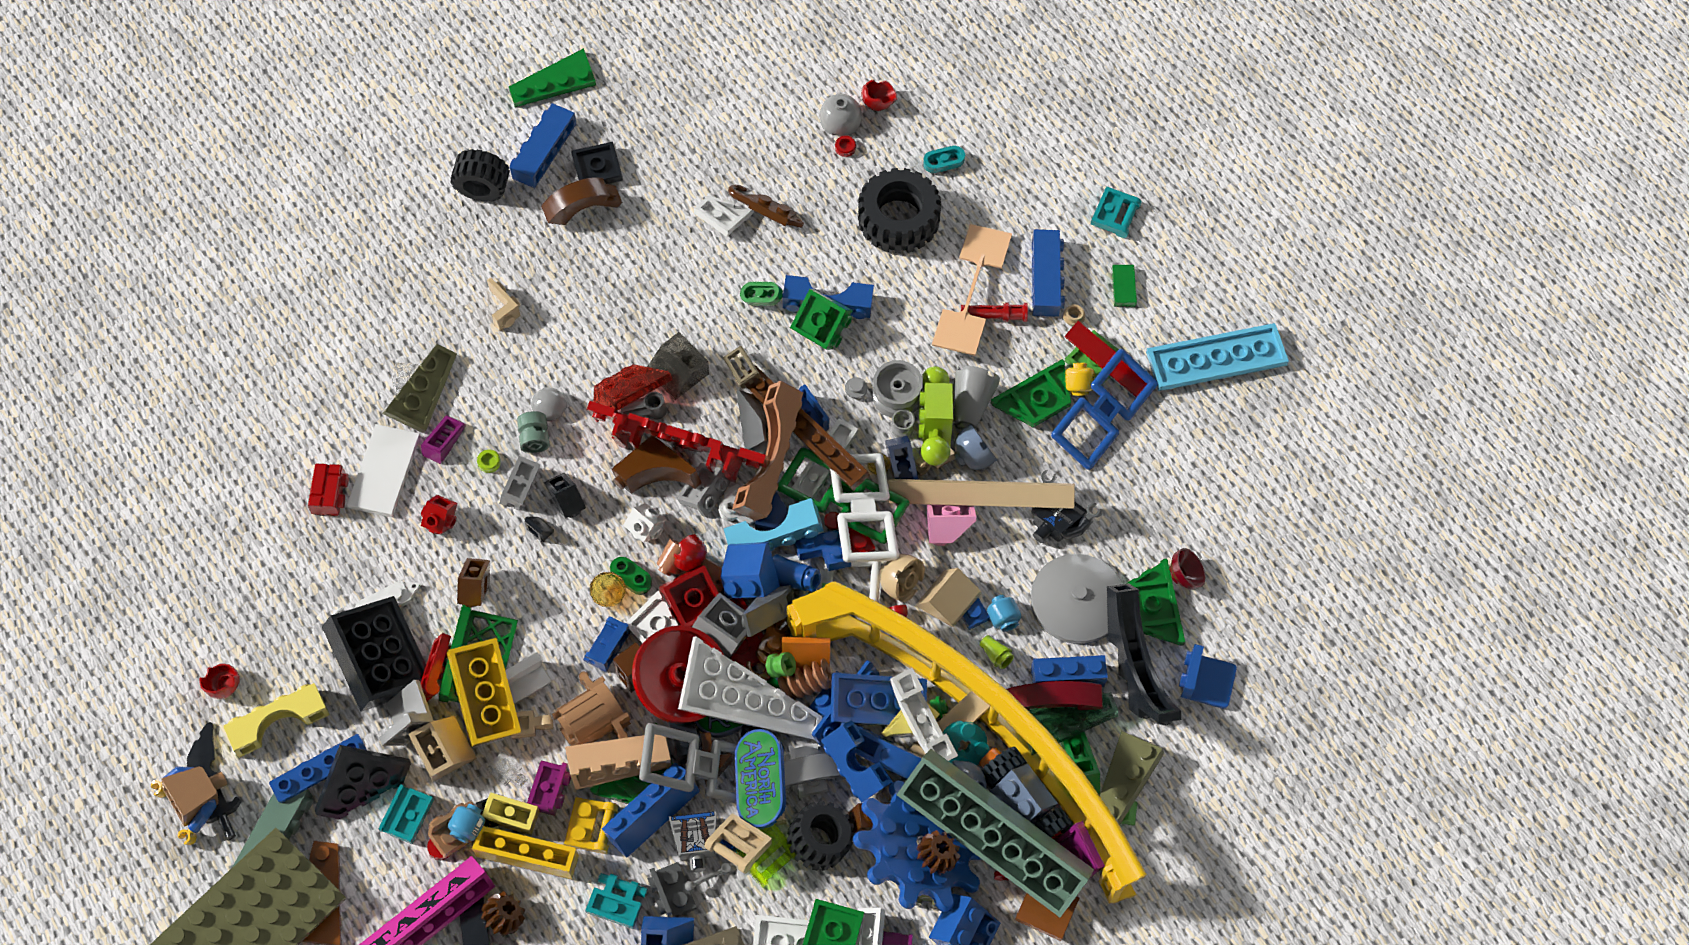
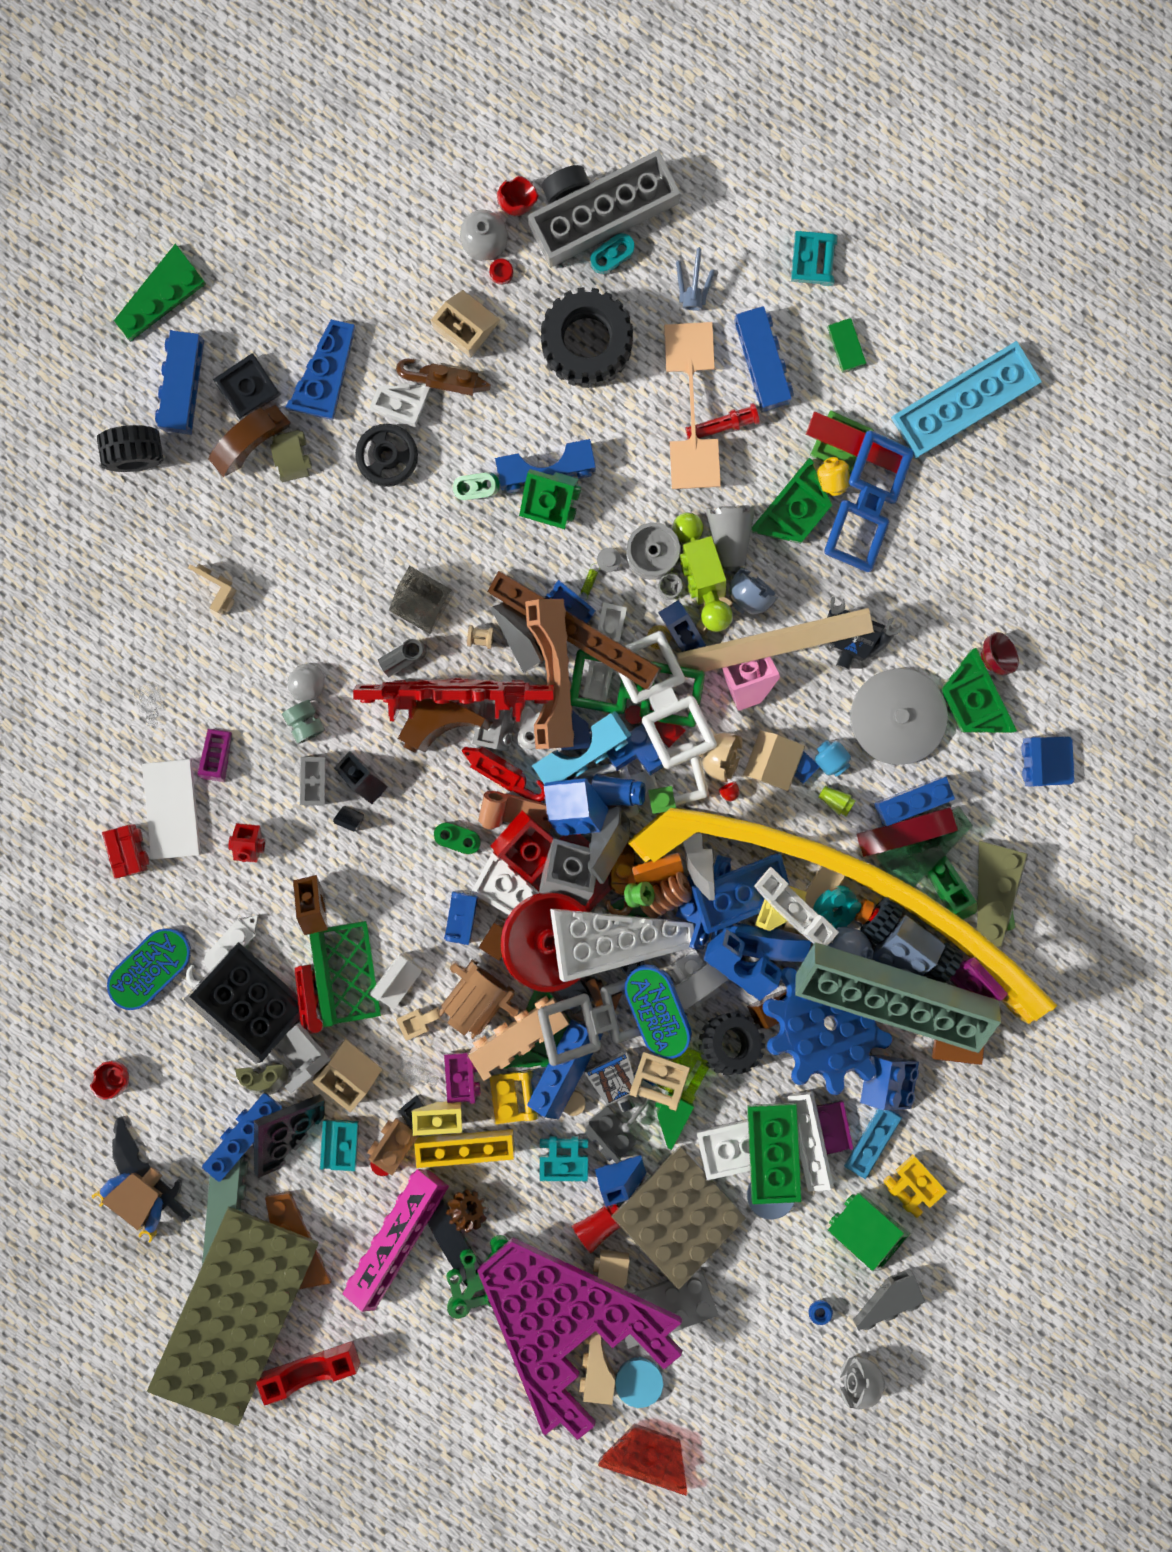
camera: 15 degrees left, 25 degrees up
(247, 731) = (160, 1118): light yellow arch -> none
(300, 598) = (149, 969): none -> tile
(368, 726) = (265, 1082): none -> olive cylinder
(421, 392) = (173, 712): olive wing -> none
(466, 823) = (401, 1146): dark azure head -> none
(483, 692) = (365, 1015): yellow slope -> none
(488, 461) = (270, 764): lime tile -> none
(607, 589) = (441, 865): clear yellow hair -> none
(611, 227) = (289, 455): none -> olive cylinder
(629, 385) = (377, 642): clear red wing -> none
(645, 523) = (452, 783): white brick -> none
(648, 851) = (575, 1104): none -> tan tile
(666, 175) = (322, 381): none -> blue wing
(689, 523) = (501, 772): none -> red plate
(692, 553) = (512, 806): red hair -> none
(693, 240) = (378, 435): none -> black wheel
(718, 413) = (473, 640): none -> tan bush
(739, 892) = (673, 1121): none -> green slope
(748, 377) = (499, 590): dark tan tile -> none
(798, 171) = (464, 322): none -> tan slope
(832, 401) = (589, 581): none -> lime piece
(848, 656) = (700, 865): none -> light grey slope
(919, 88) = (564, 182): none -> black tyre
(938, 852) = (855, 1044): reddish brown gear -> none
(940, 706) = (799, 876): green plate -> none
(947, 123) = (604, 209): none -> light grey brick
(1001, 211) = (693, 298): none -> sand blue plant
(1073, 309) = (808, 392): tan plate -> none
(1125, 631) = (975, 773): black arch -> none

